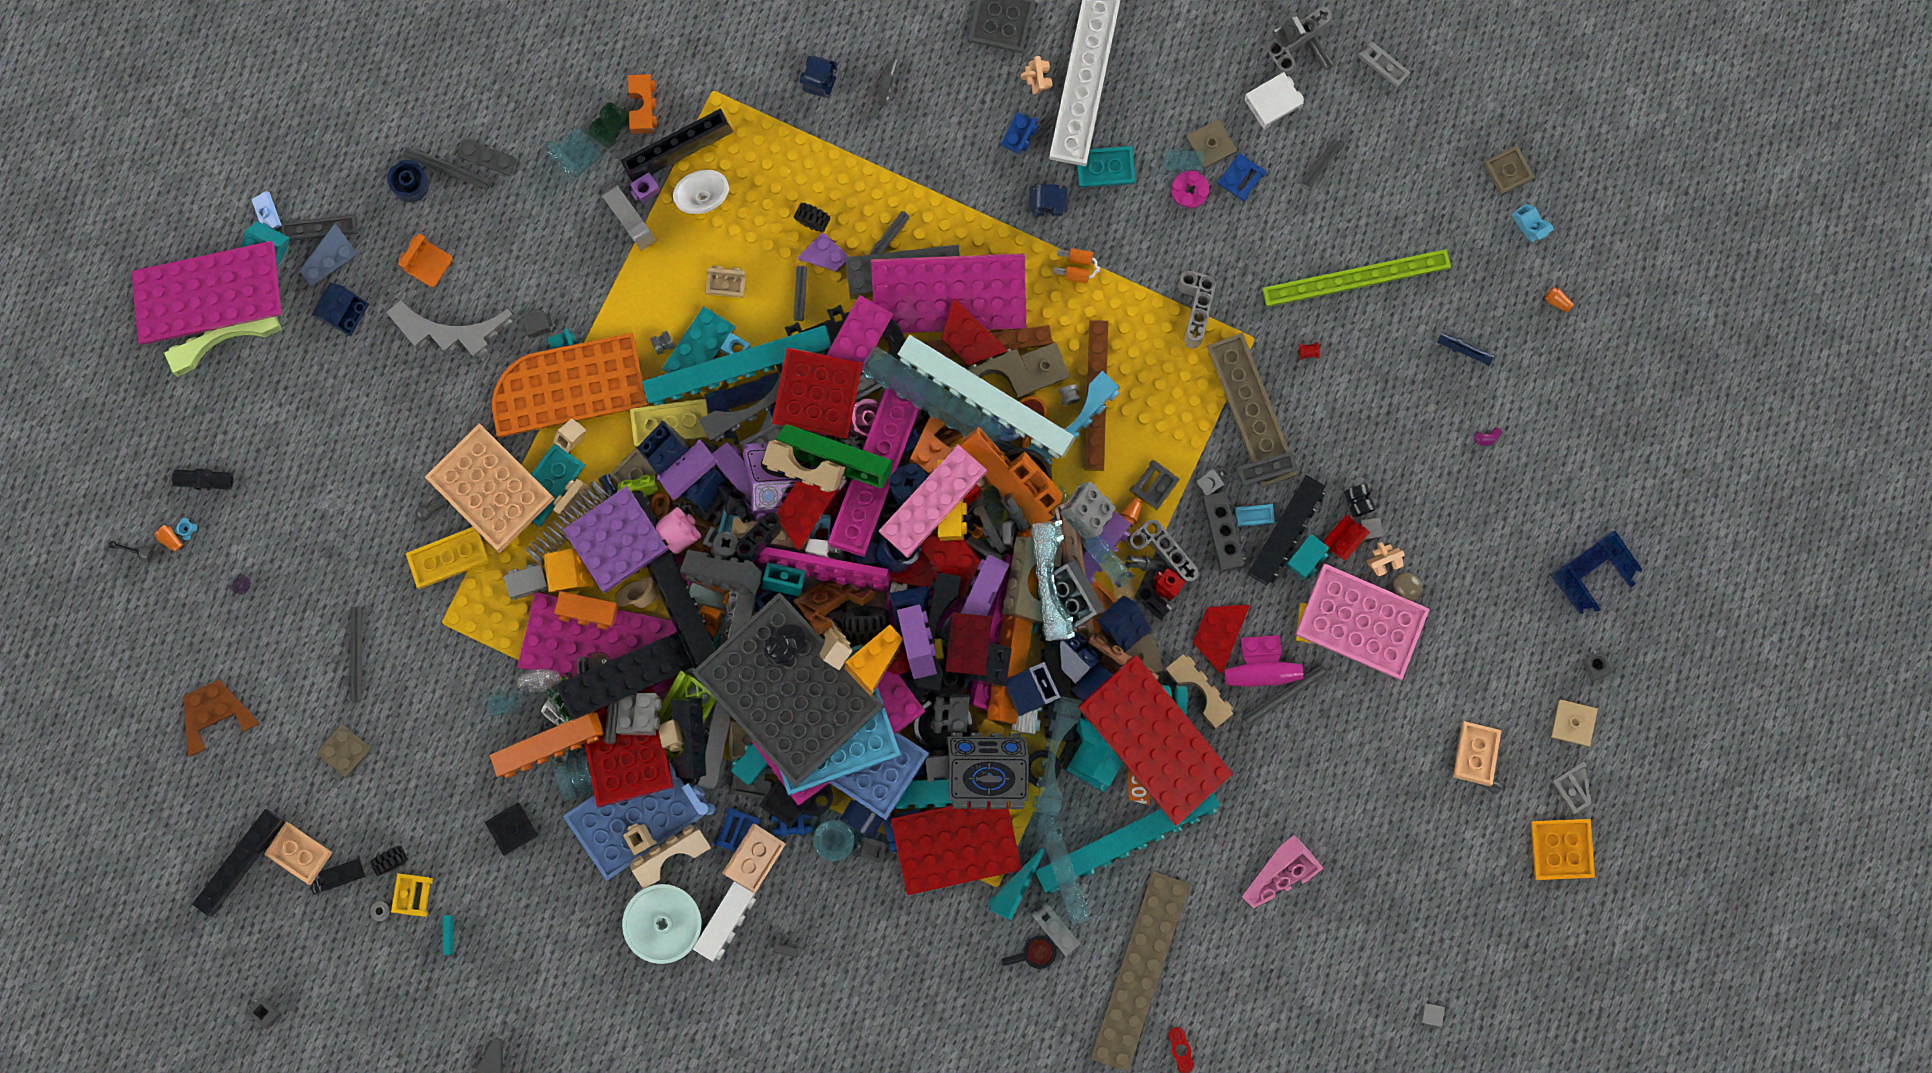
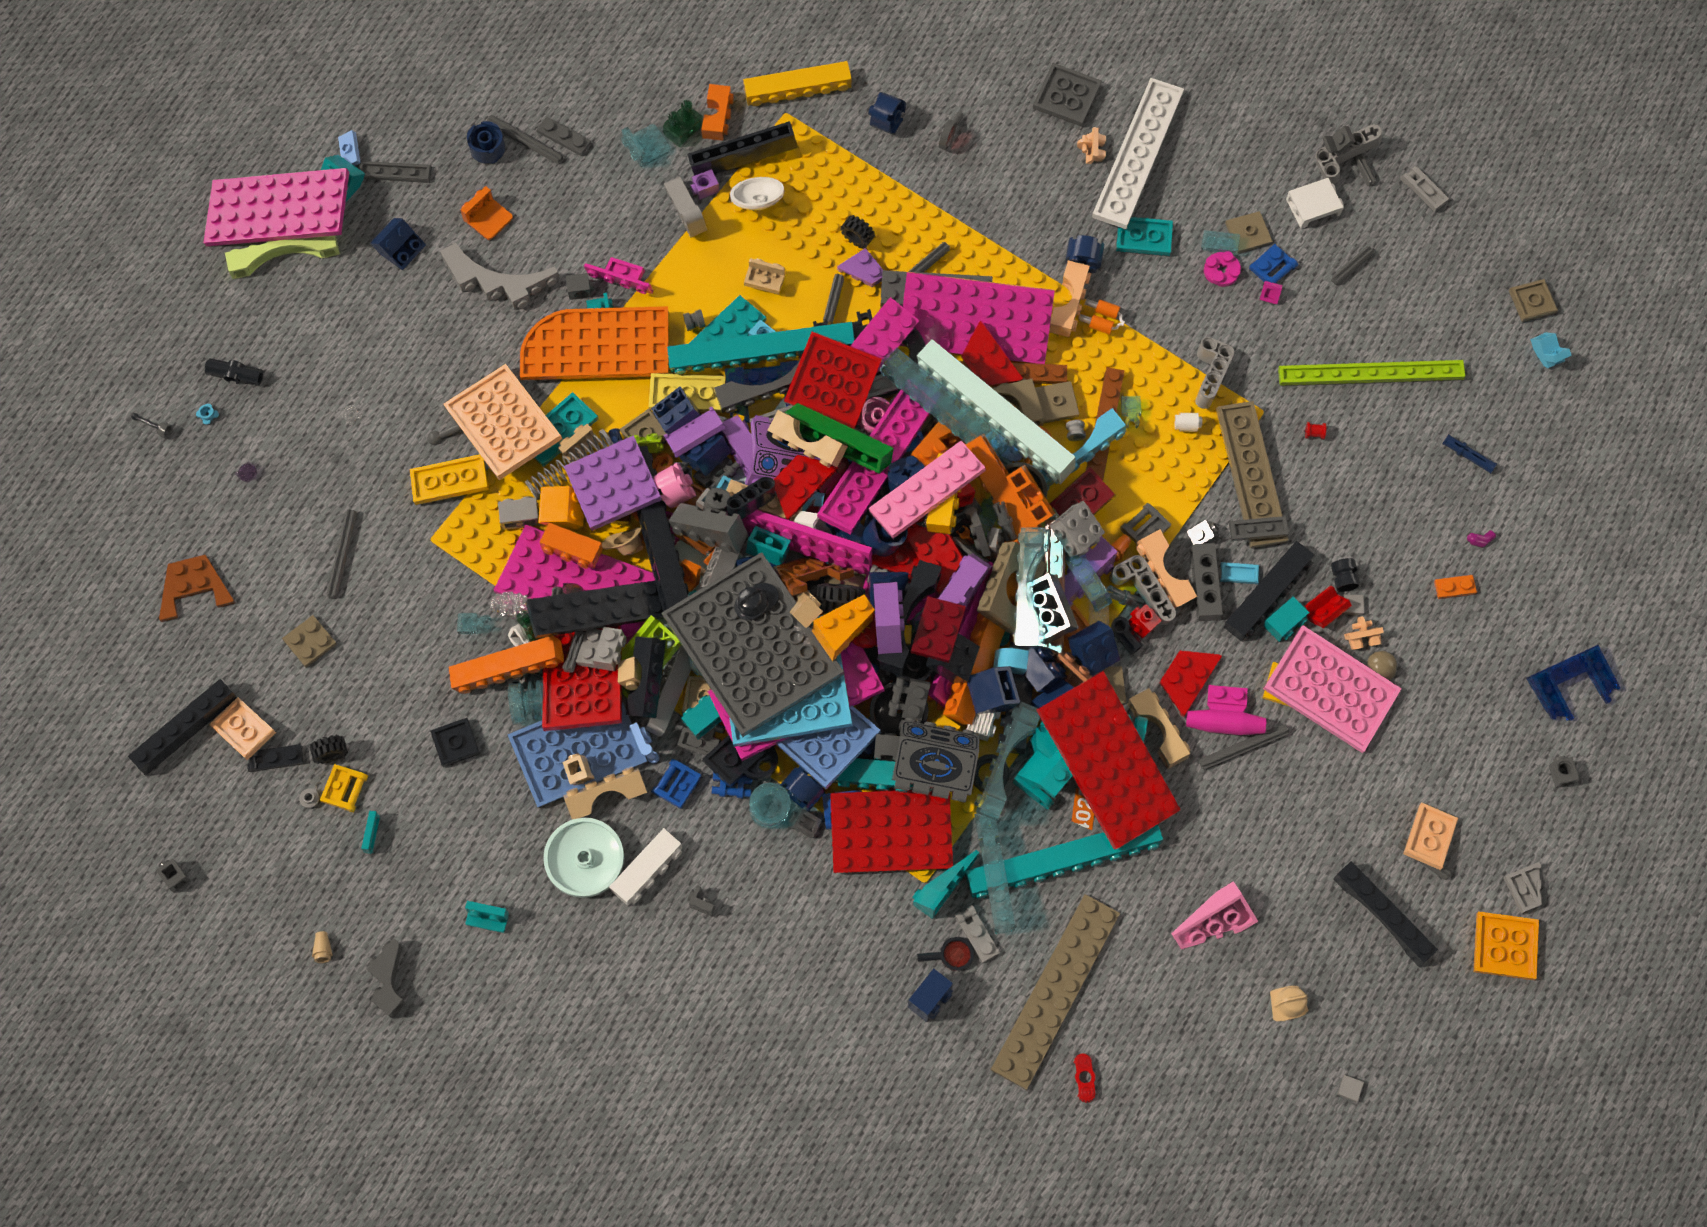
camera: 10 degrees right, 10 degrees down
(168, 538) = (188, 418): orange cone -> none
(328, 256) = (397, 196): sand blue wing -> none
(426, 1058) = (322, 950): none -> tan cone
(569, 435) = (588, 387): tan brick -> none
(578, 301) = (621, 272): none -> dark pink bracket
(579, 1000) = (486, 916): none -> teal bracket
(719, 56) = (797, 83): none -> yellow brick
(735, 503) = (734, 468): black pin -> none
(754, 858) = (688, 810): light nougat tile -> none
(1019, 133) = (1067, 193): blue bracket -> none
(1021, 1000) = (930, 995): none -> dark blue brick
(1042, 230) = (1063, 317): none -> light nougat arch
(1044, 652) = (1012, 657): none -> medium azure brick
(1089, 464) = (1085, 488): none -> dark red plate
(1121, 360) = (1131, 408): none -> clear light blue plate
(1166, 509) = (1153, 550): none -> light nougat arch
(1180, 366) = (1188, 422): none -> white brick
(1243, 208) = (1270, 292): none -> dark pink plate
(1363, 942) = (1288, 1003): none -> tan piece
(1443, 838) = (1410, 938): none -> black arch
(1469, 492) = (1455, 586): none -> orange plate
(1558, 299) = (1567, 423): orange cone -> none
(1574, 723) = (1533, 824): tan plate -> none

